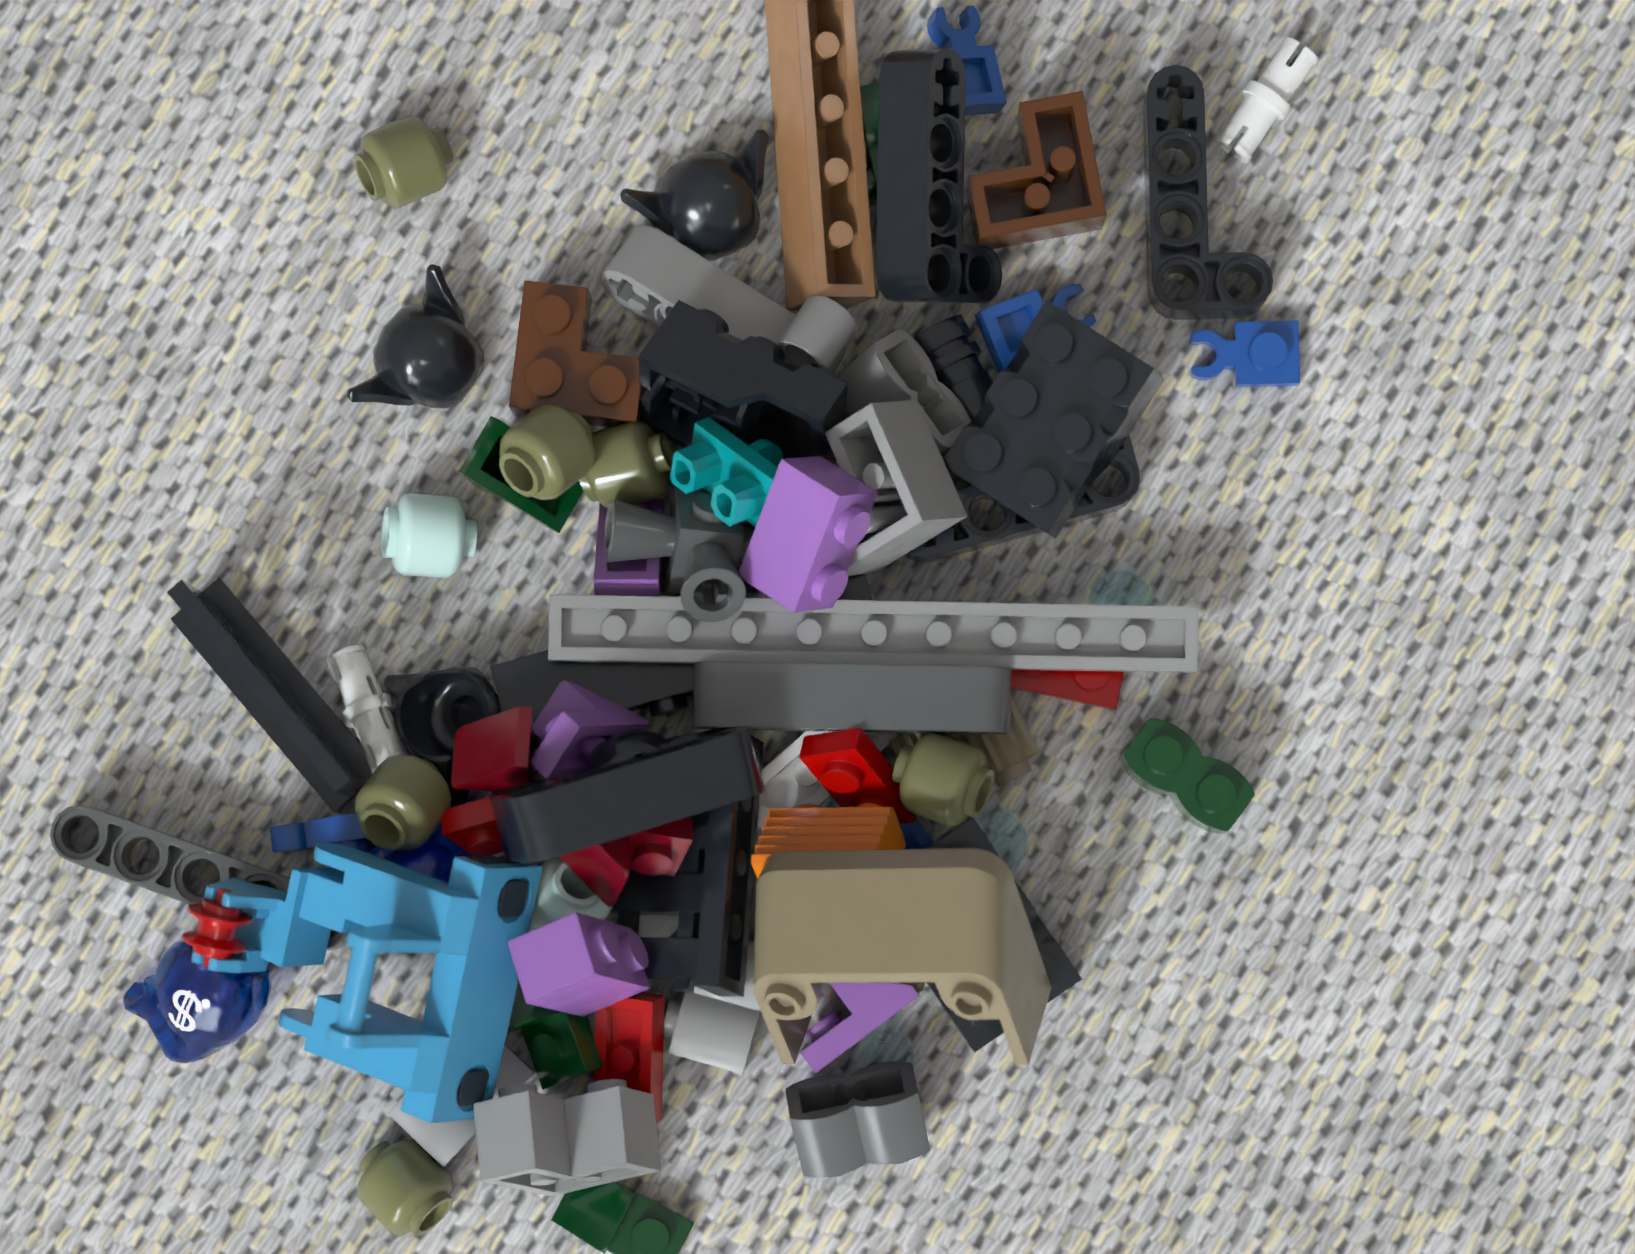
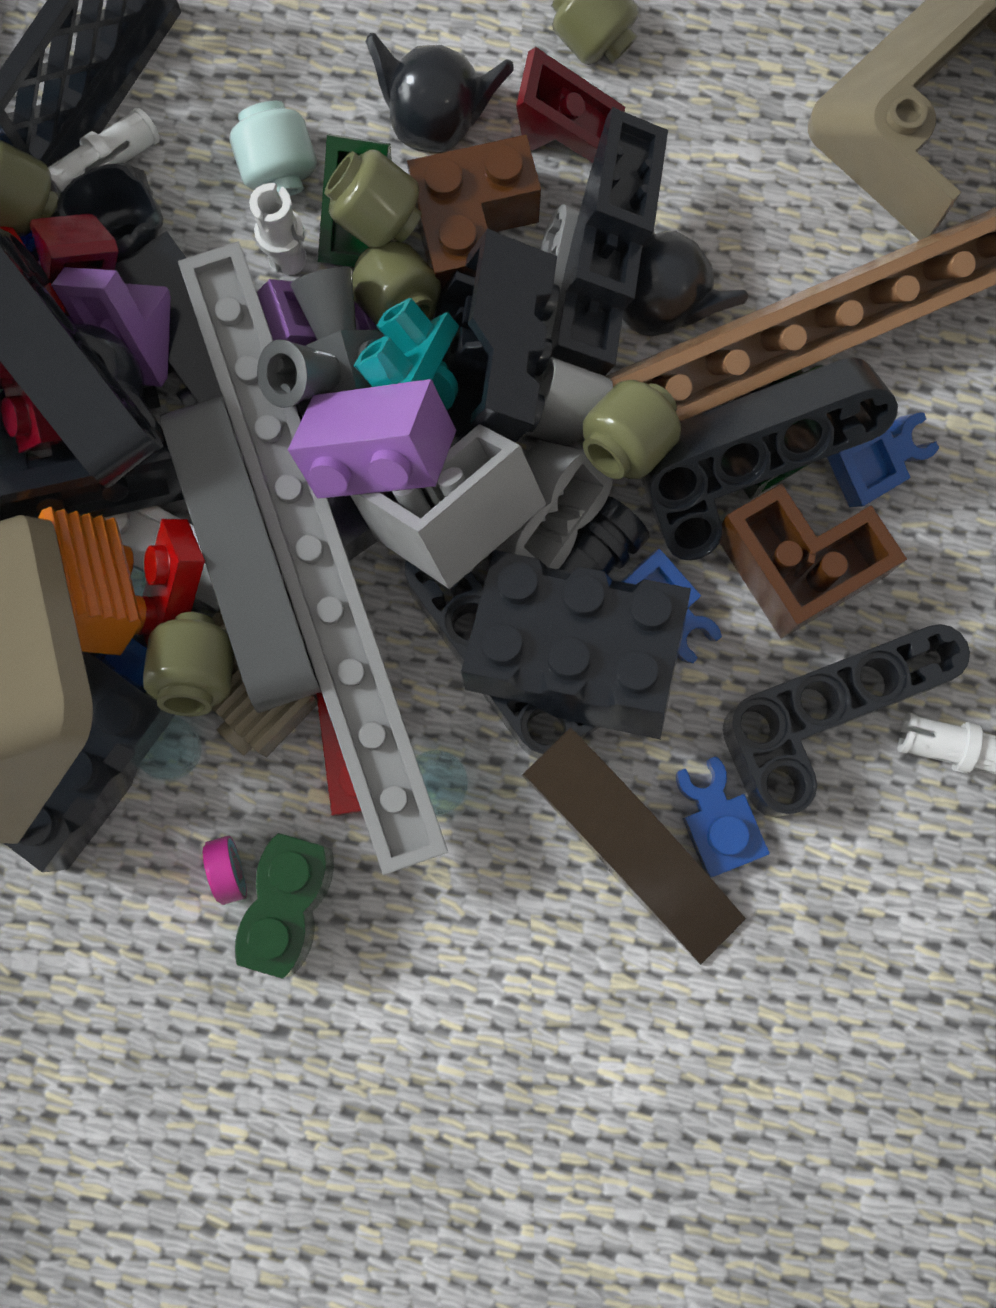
camera: 65 degrees right, 5 degrees down
(502, 226) = (561, 106): none -> dark red slope
(532, 541) = (278, 229): none -> white pin
(666, 244) = (608, 242): none -> black slope
(877, 296) = (631, 429): none -> olive head
(1133, 823) = (224, 870): none -> dark pink tile
(1247, 440) = (634, 845): none -> dark brown slope

